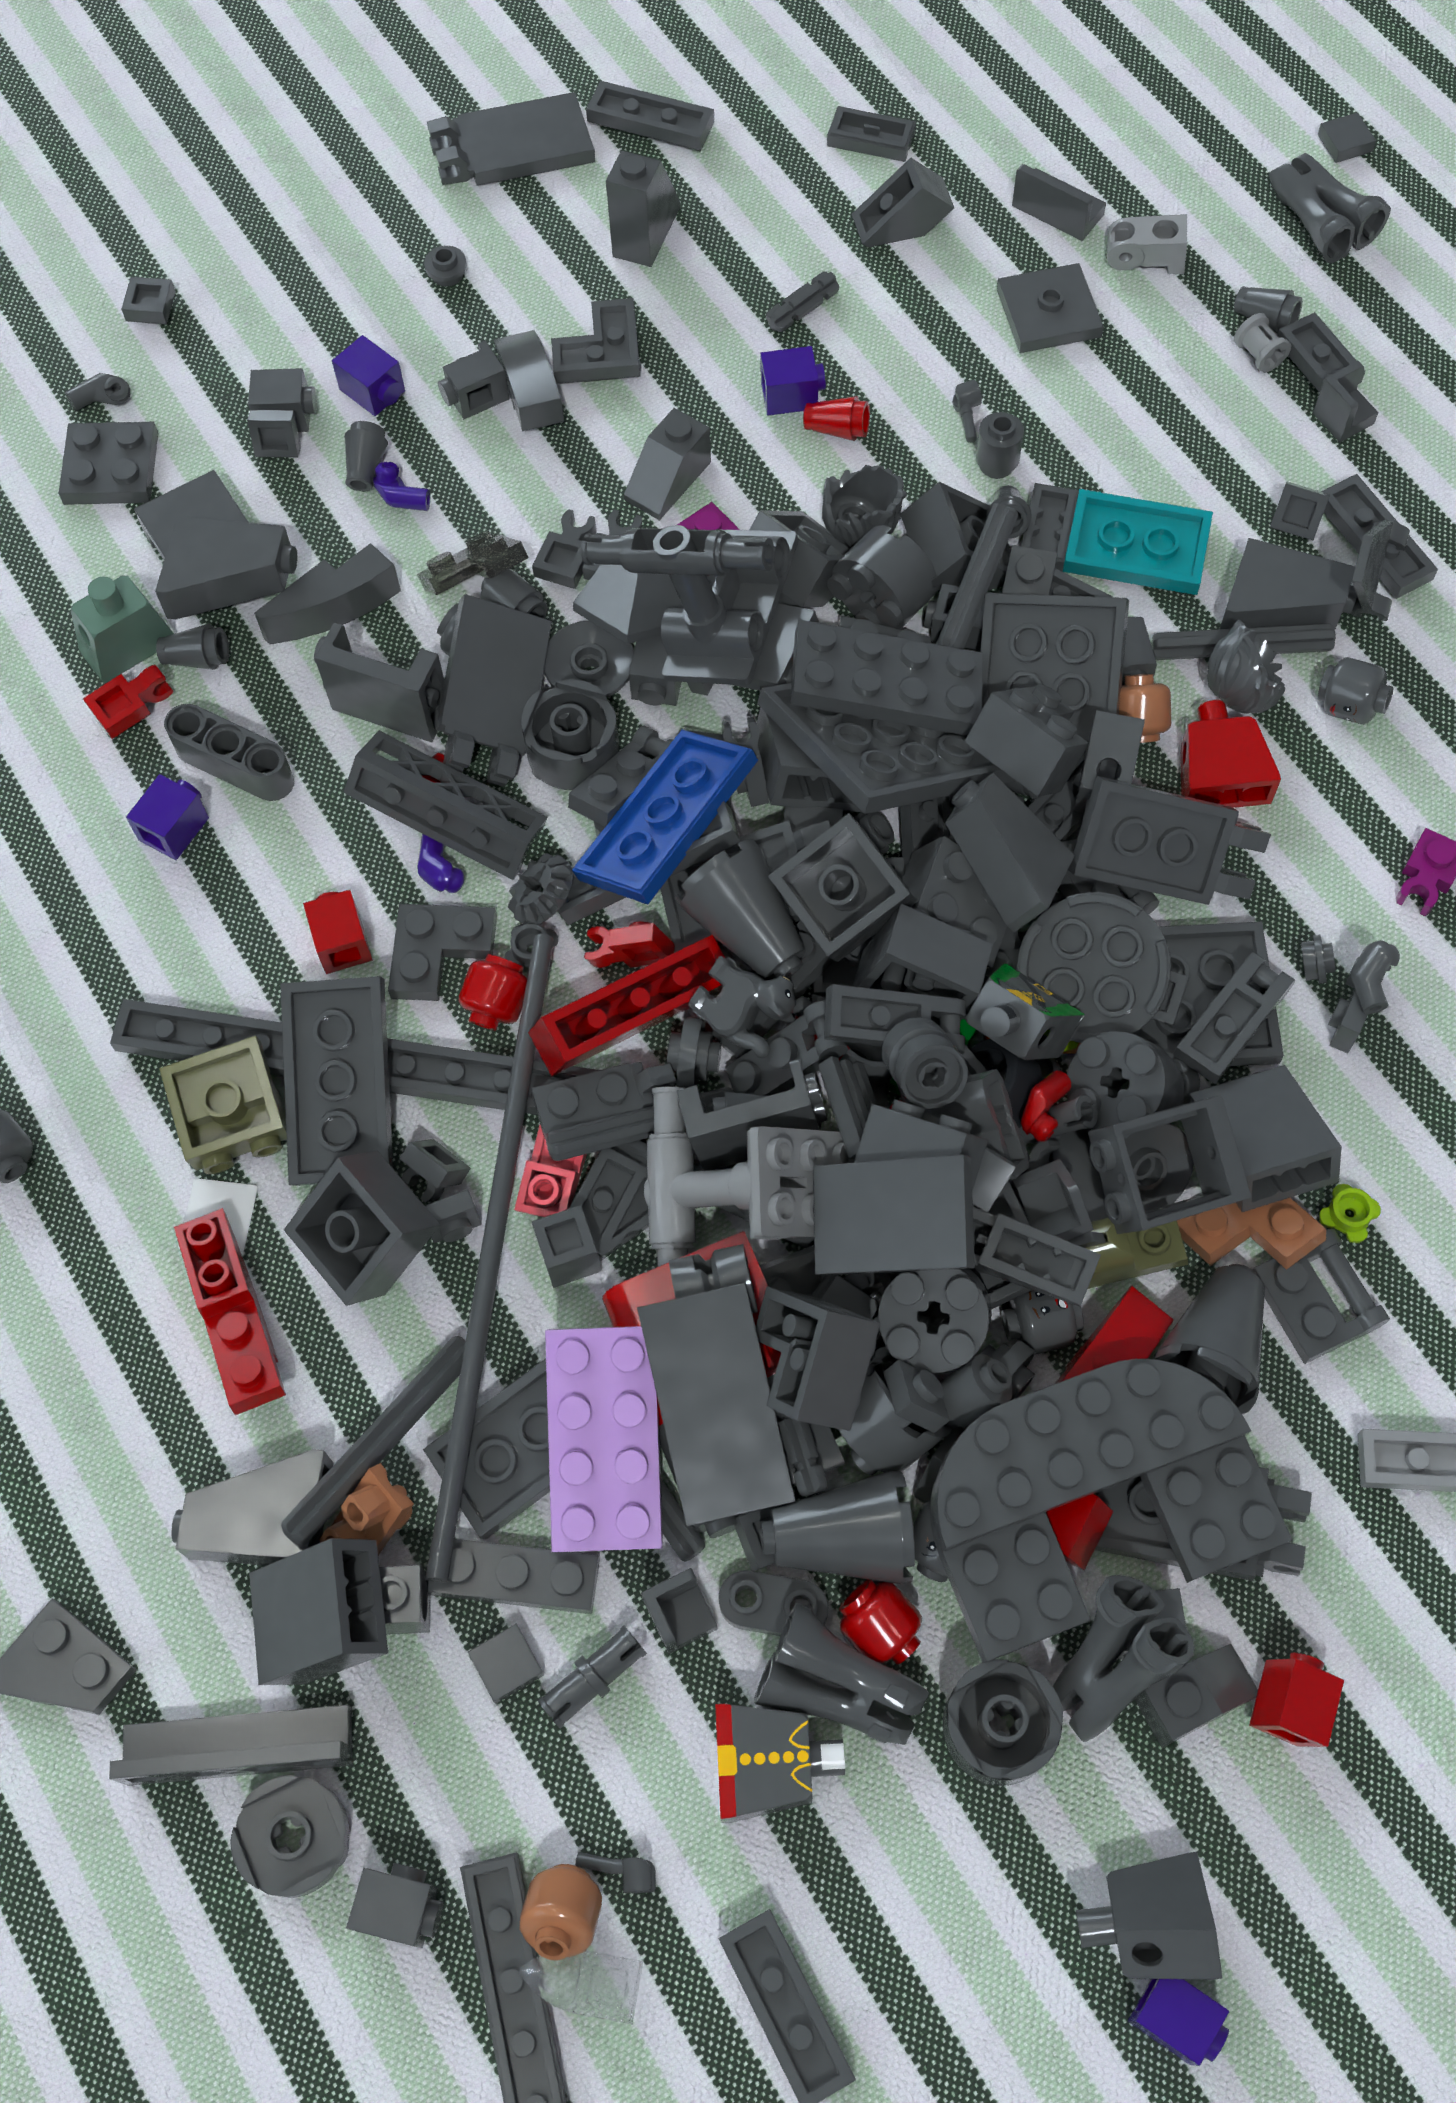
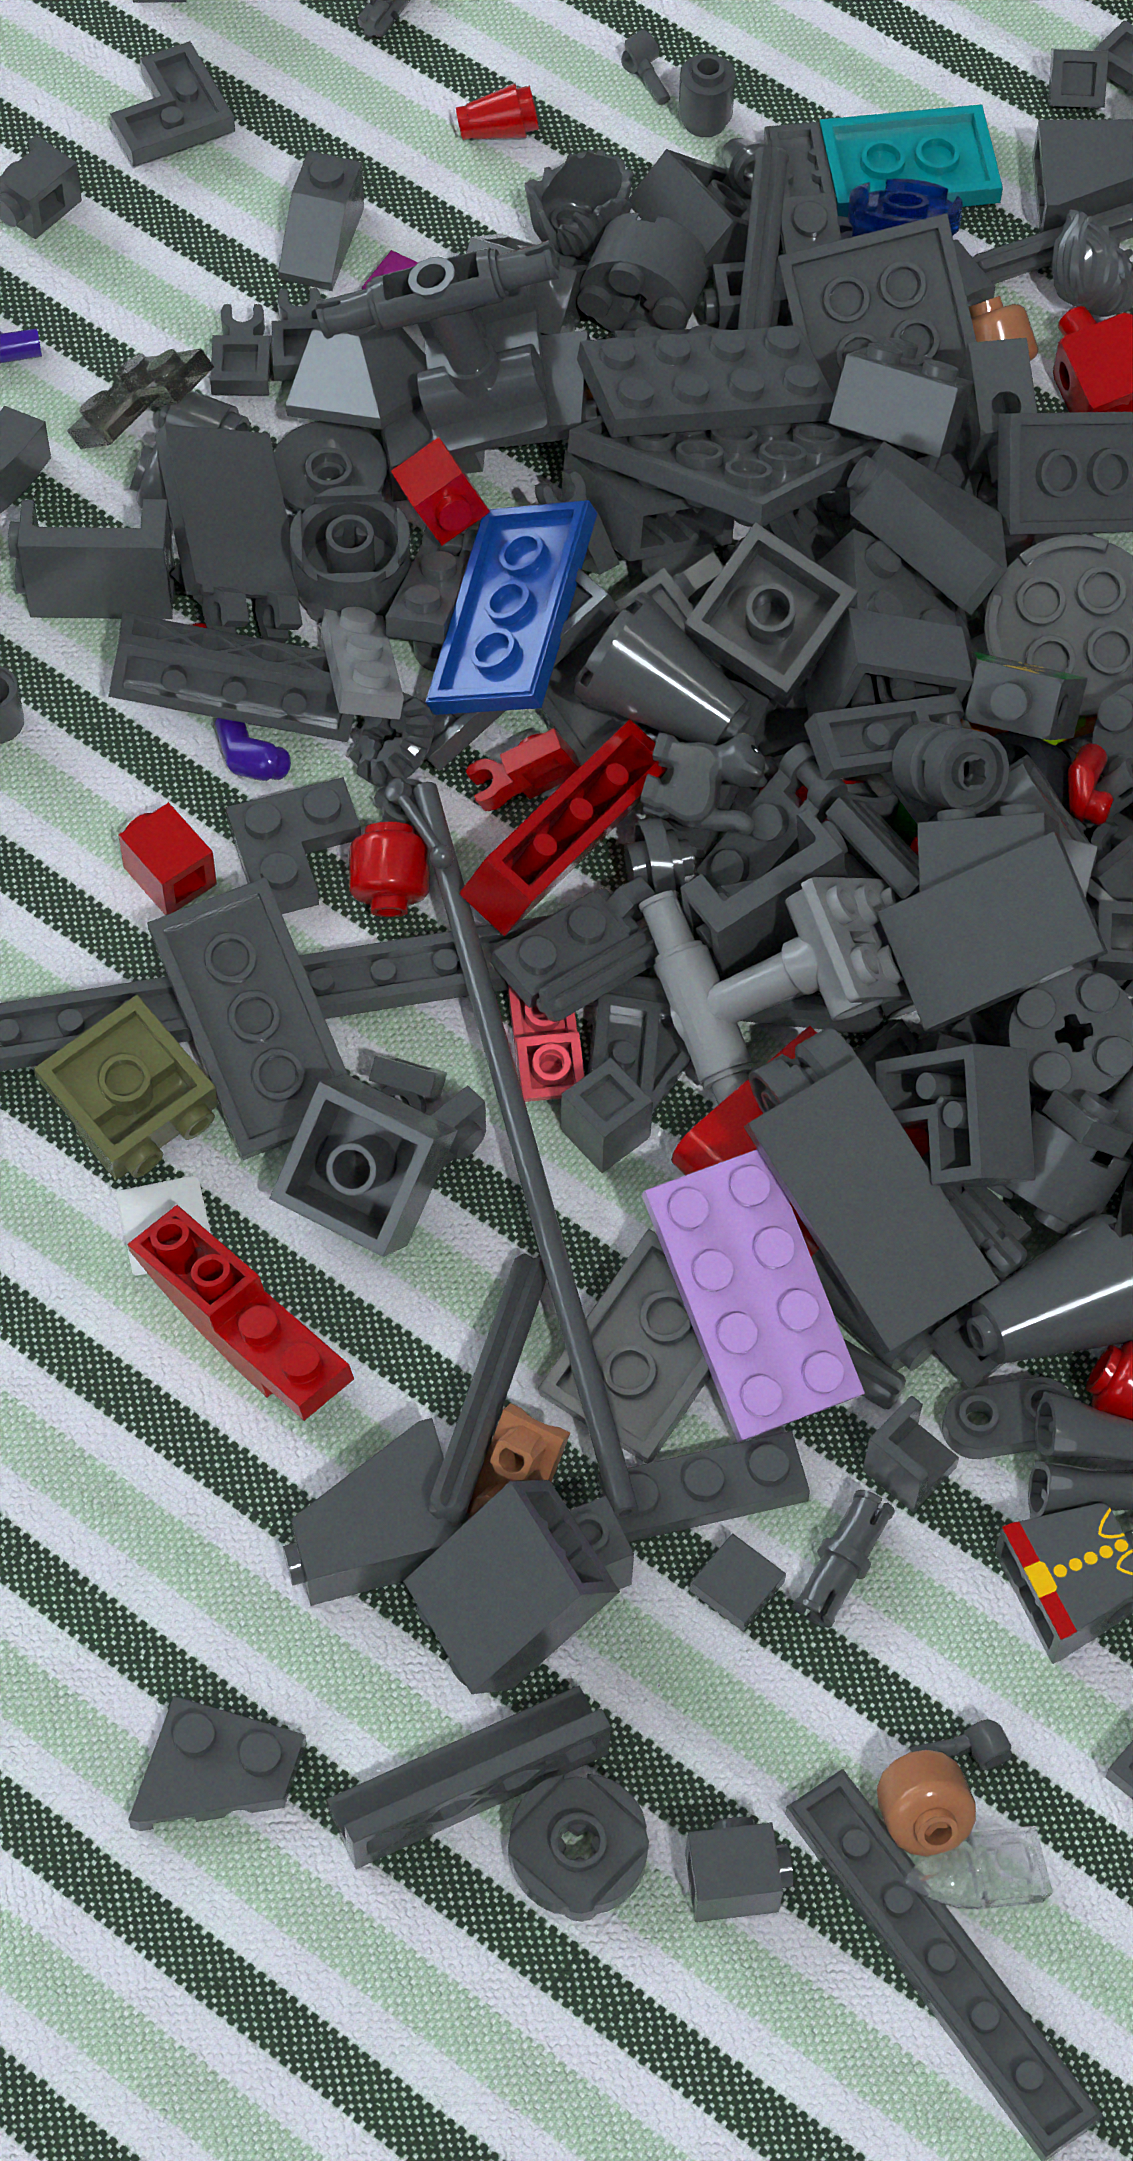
camera: 25 degrees left, 5 degrees down
(523, 935) = (399, 793): none -> dark grey hinge
(529, 380) = (110, 169): dark grey slope -> none
(536, 825) = (361, 663): none -> light grey plate
(652, 705) = (440, 491): none -> red brick
(790, 379) = (423, 87): dark purple brick -> none
(1108, 578) = (900, 204): none -> clear blue plate

